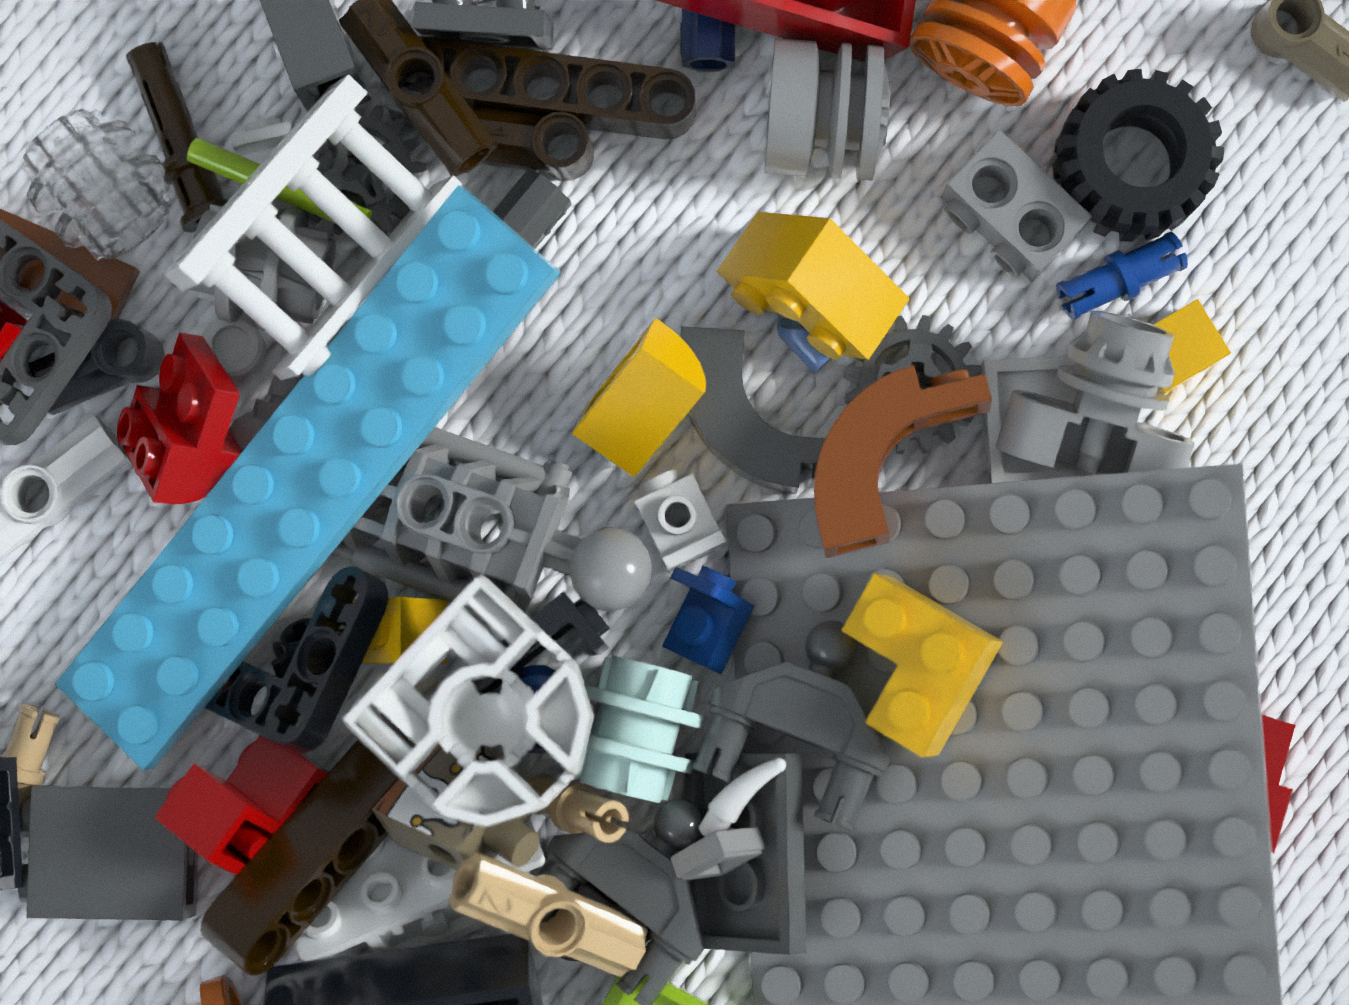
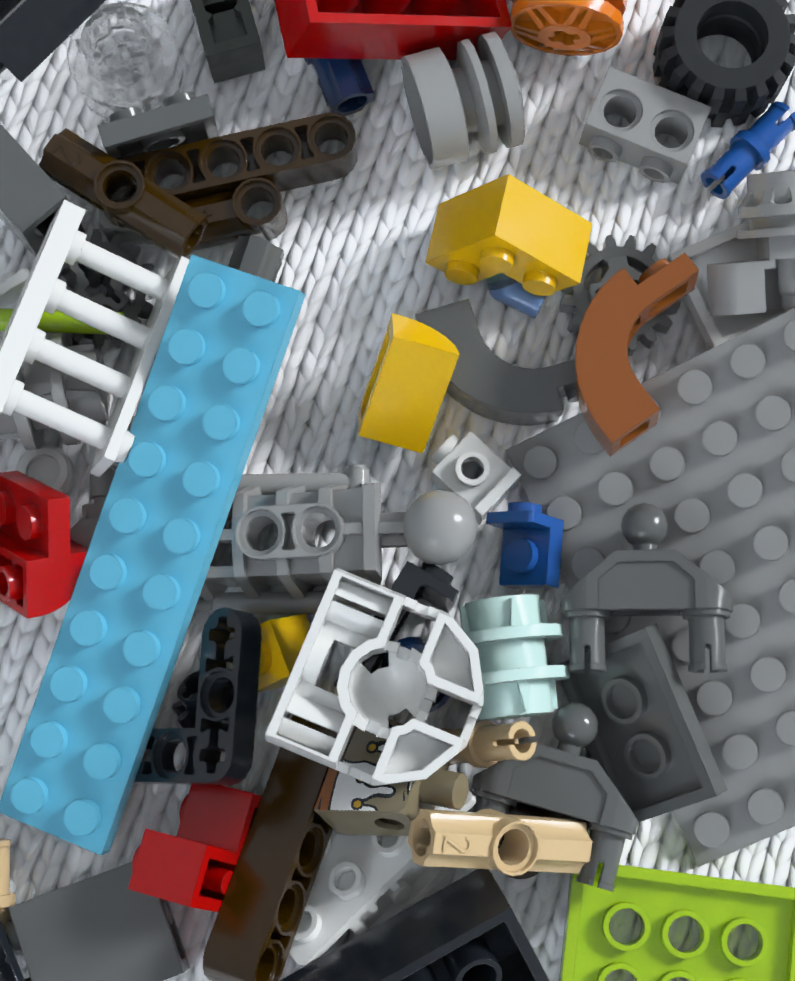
camera: 30 degrees left, 5 degrees down
(718, 853) = (621, 734): light grey tile -> none
(733, 798) = (615, 681): white helmet -> none
(937, 660) = (740, 495): yellow brick -> none

